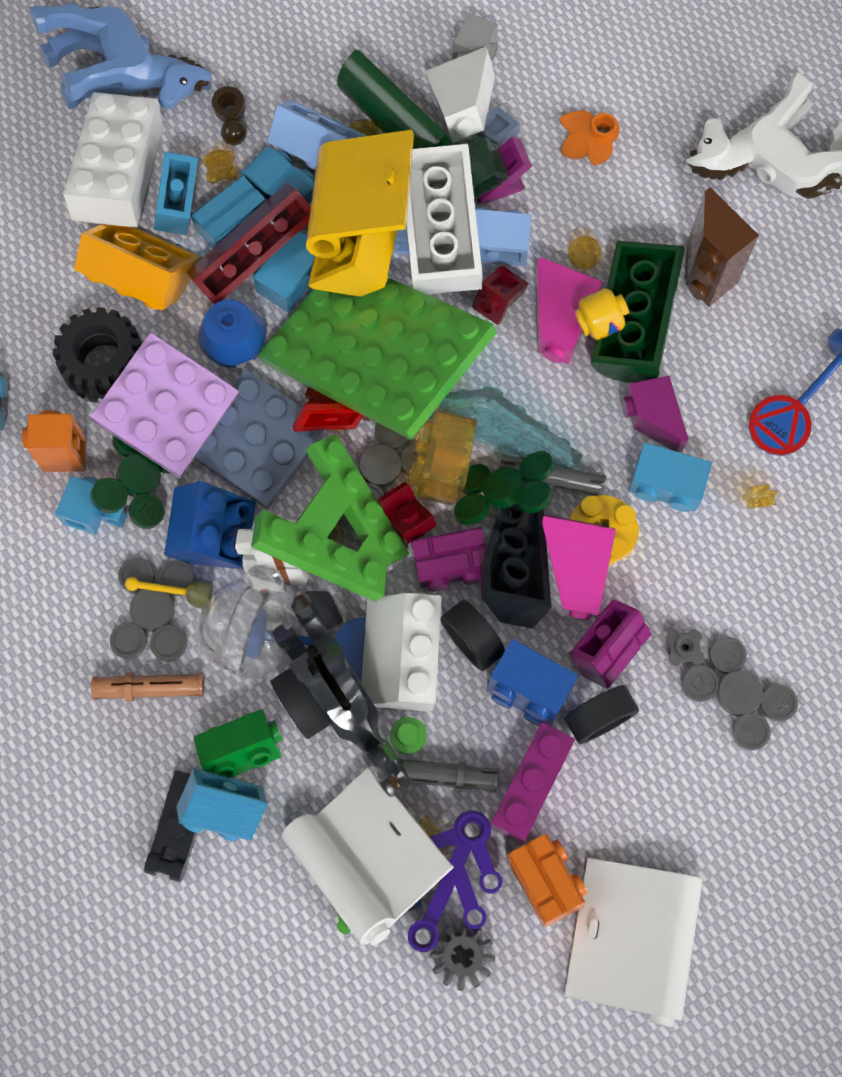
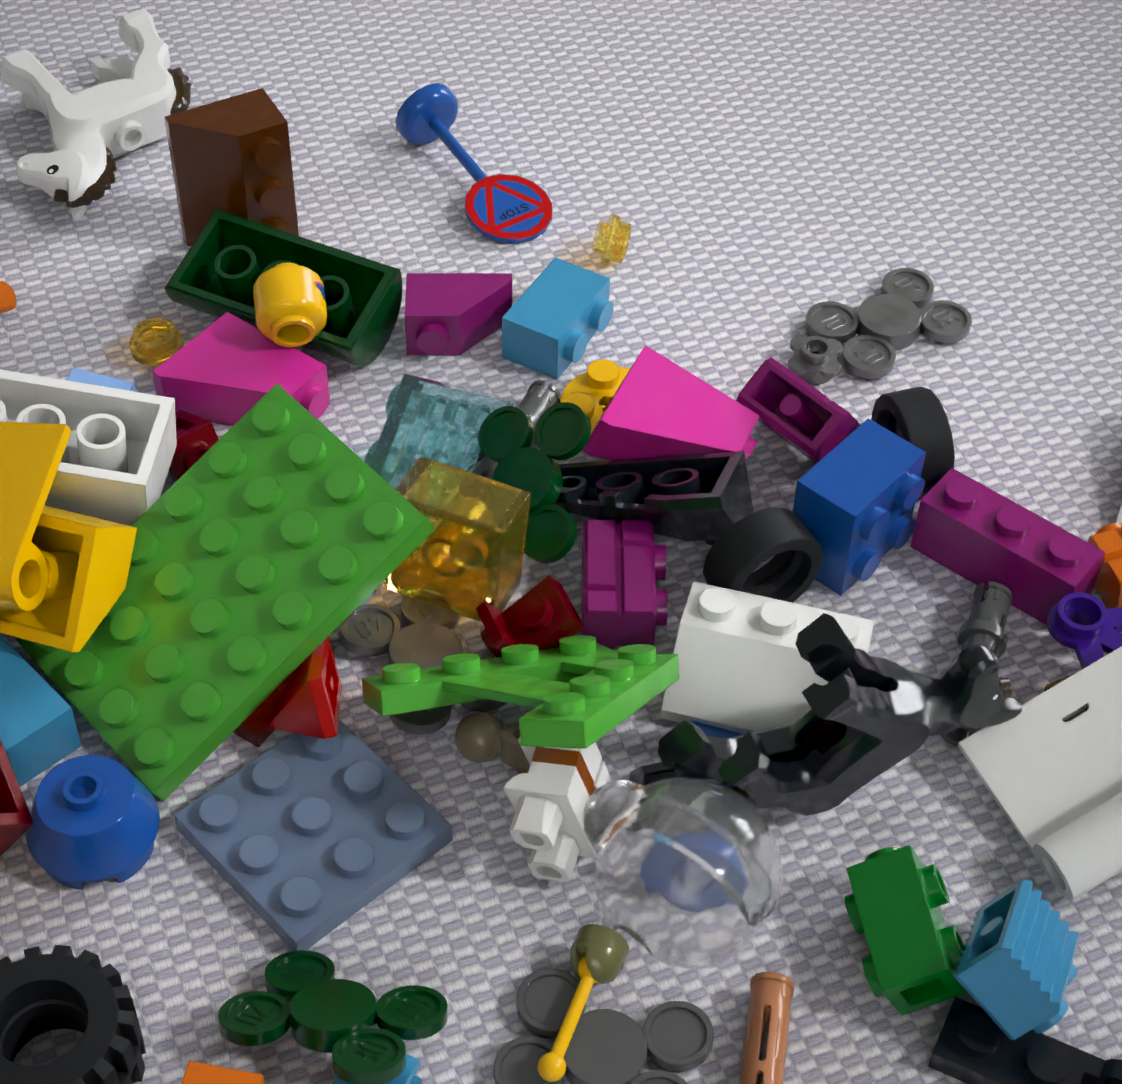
camera: 80 degrees left, 25 degrees down
(164, 405) = (211, 930): lavender plate -> none
(206, 525) = (468, 918): blue slope -> none
(299, 704) = (840, 811): black tyre -> none

